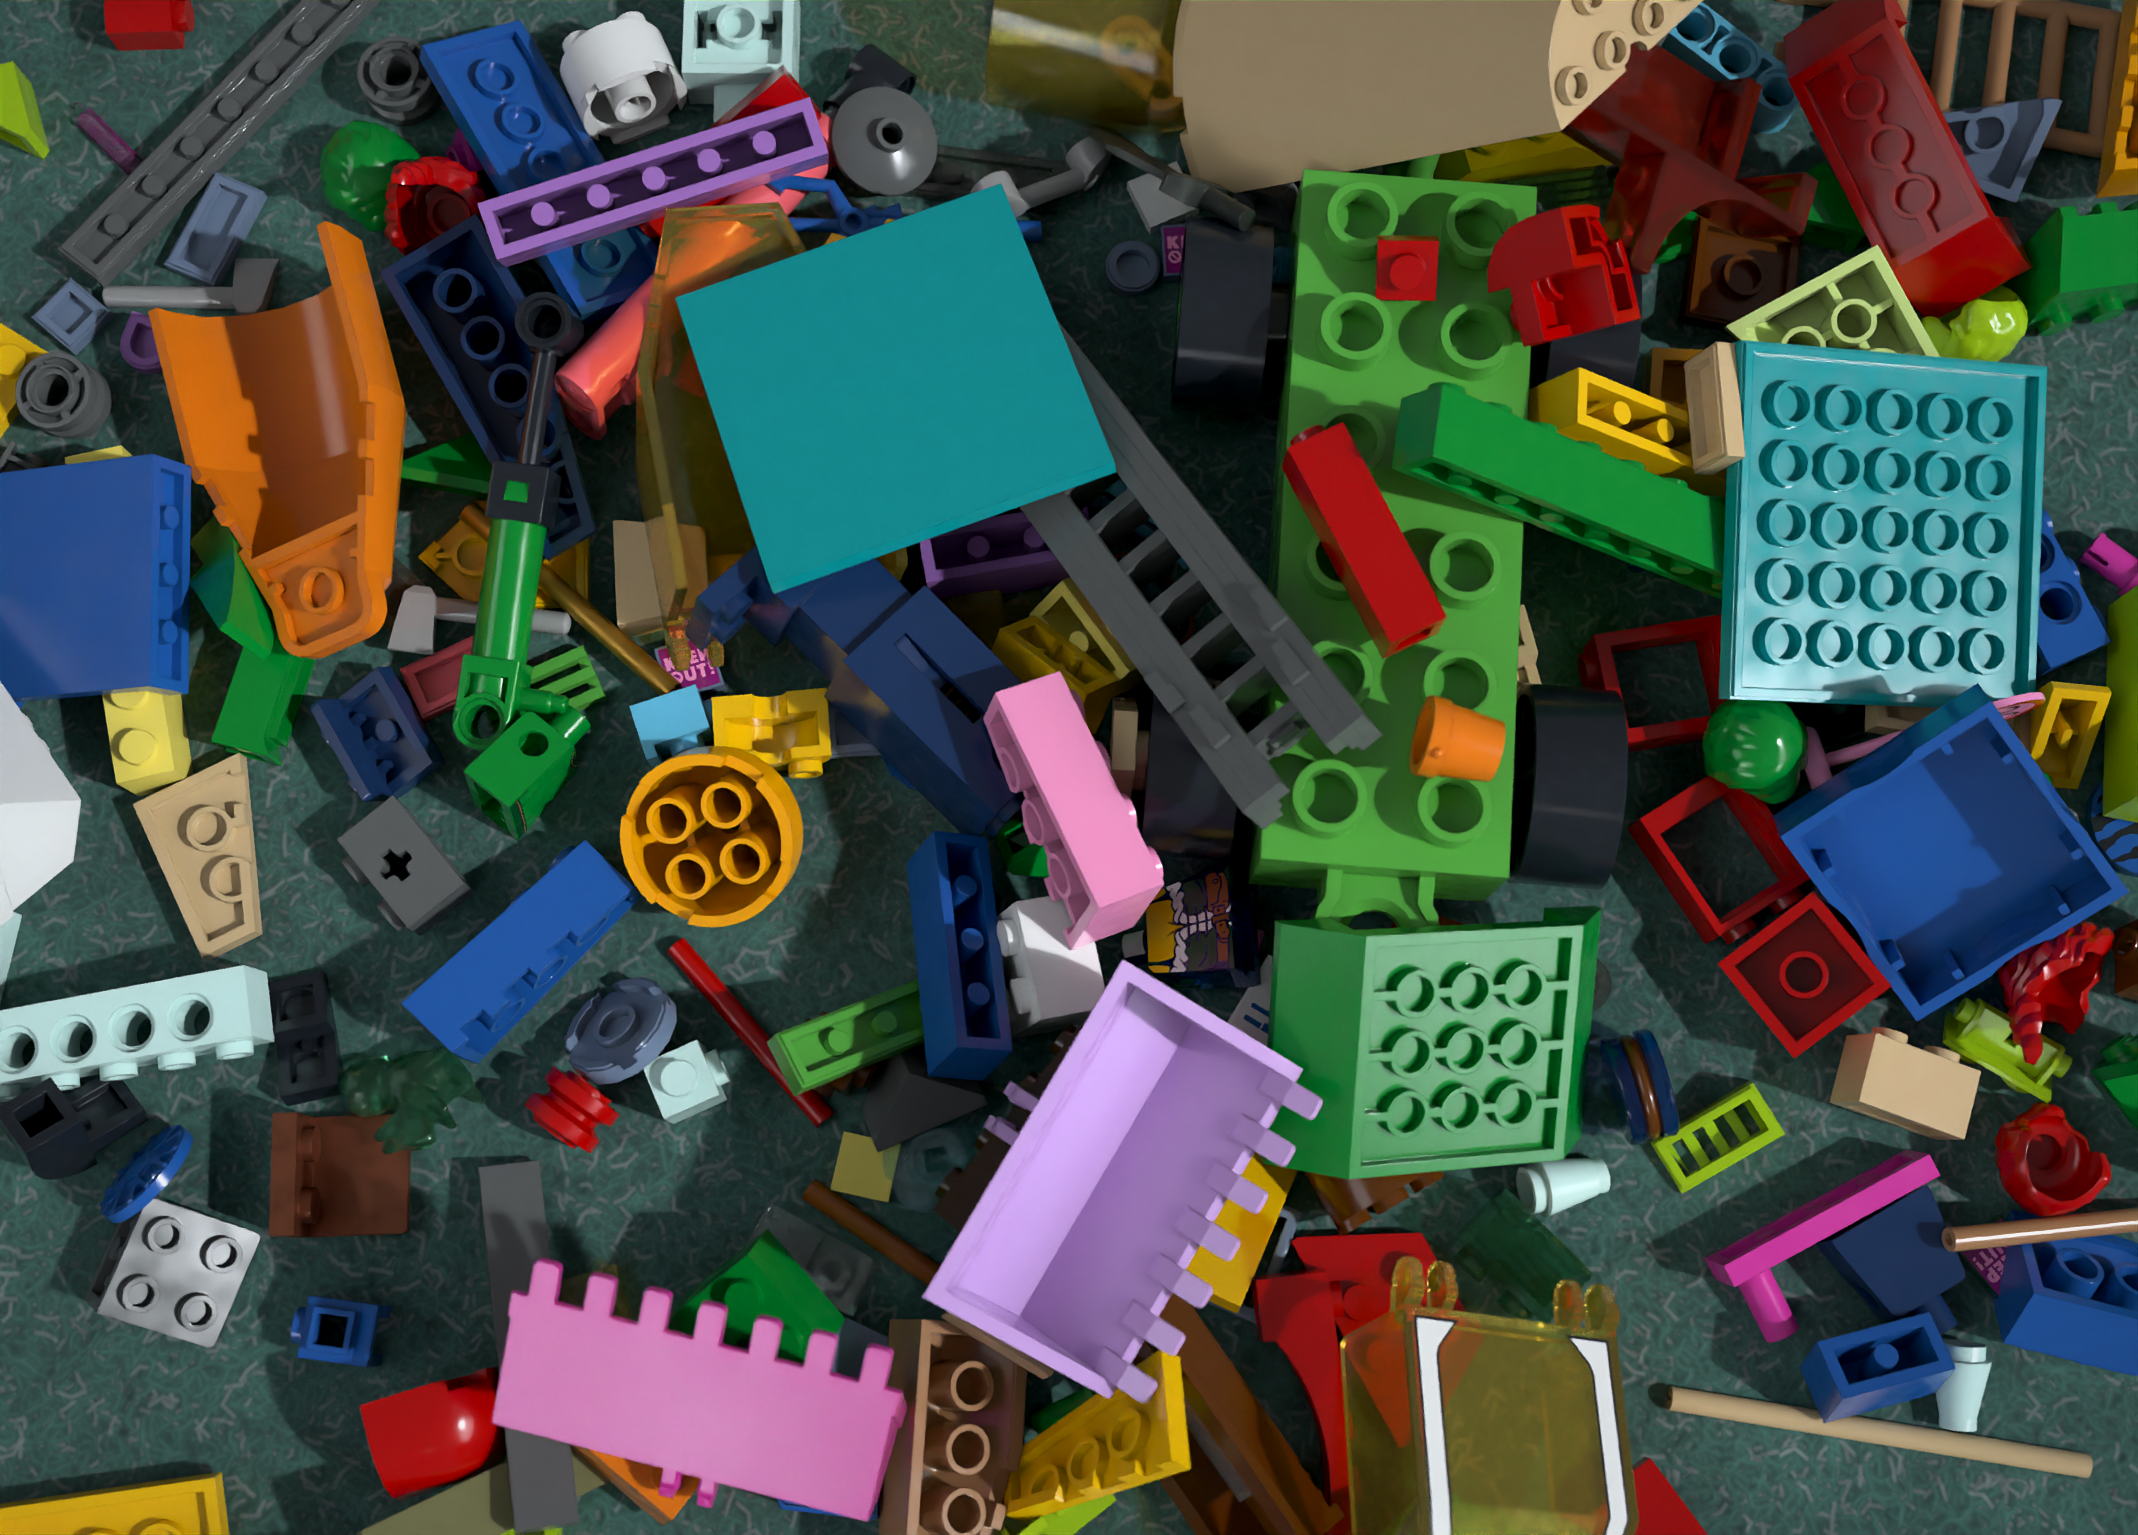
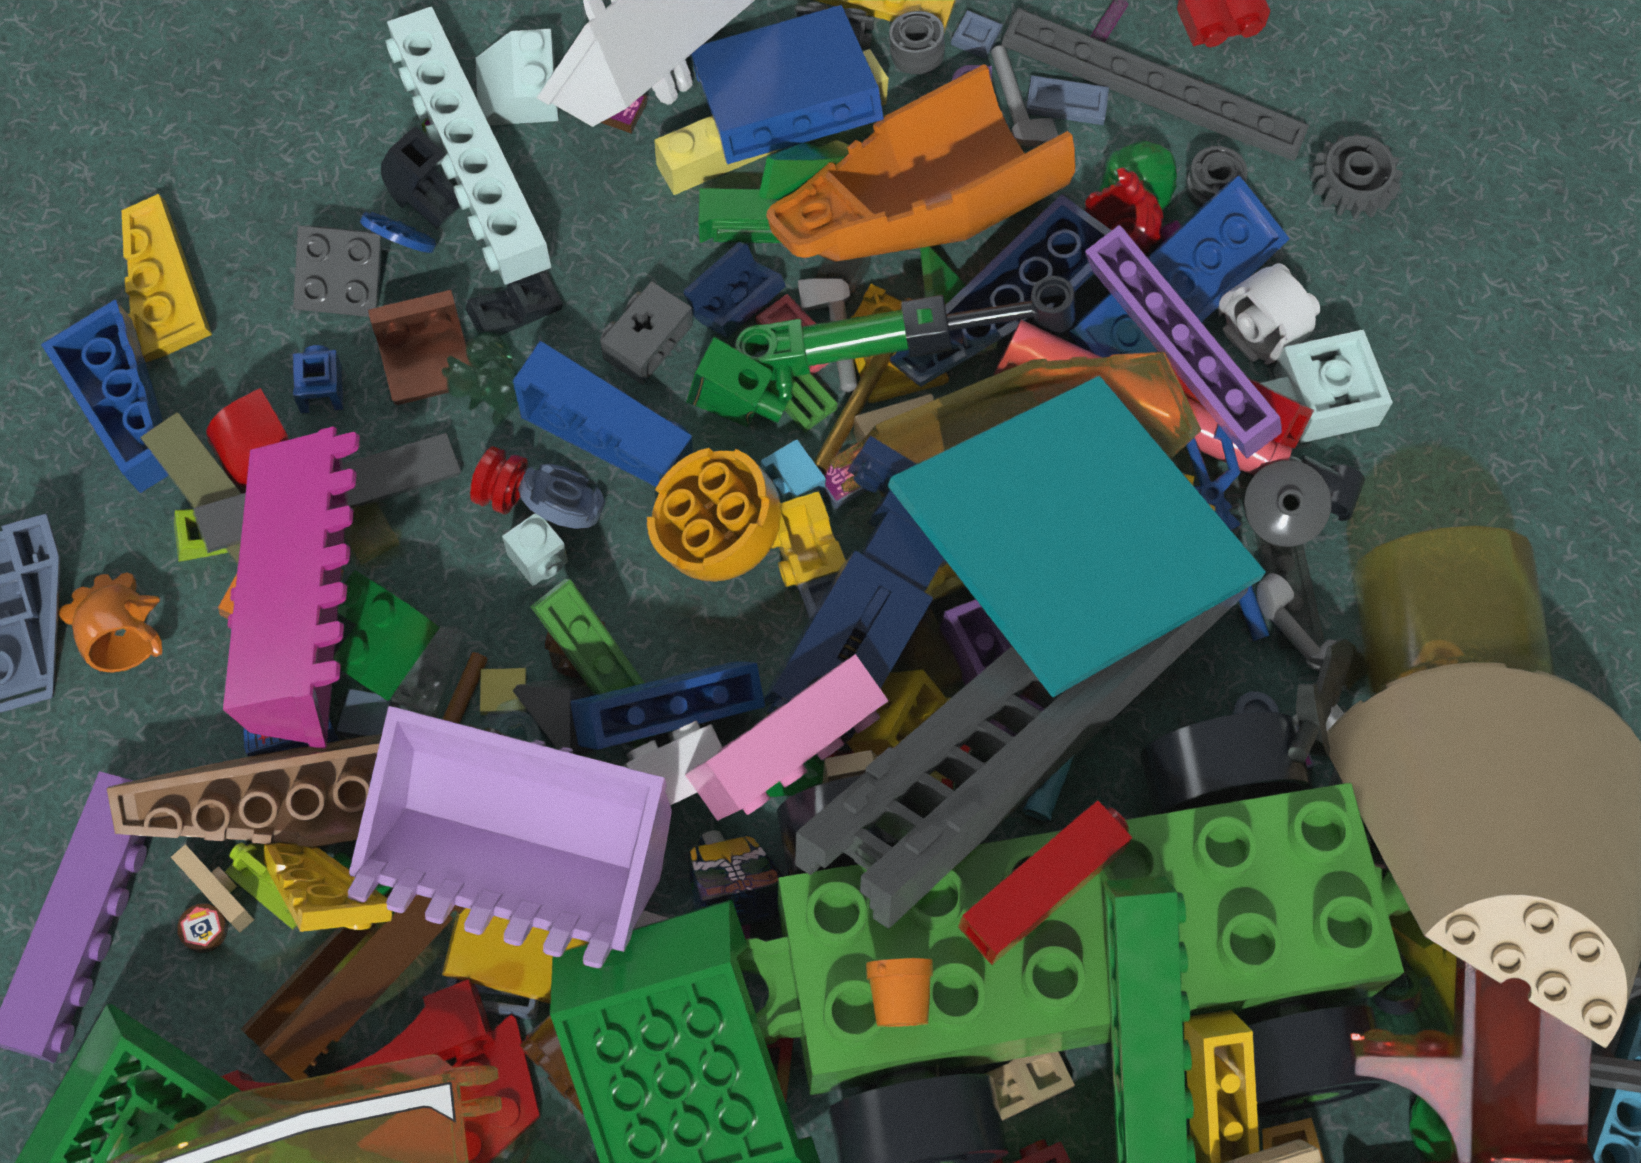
camera: 75 degrees right, 10 degrees down
(208, 853) = (624, 213): tan wing -> none
(743, 1025) = (594, 575): red bar -> none
(1406, 267) = (1290, 873): red plate -> none
(1563, 275) = (1323, 997): red brick -> none

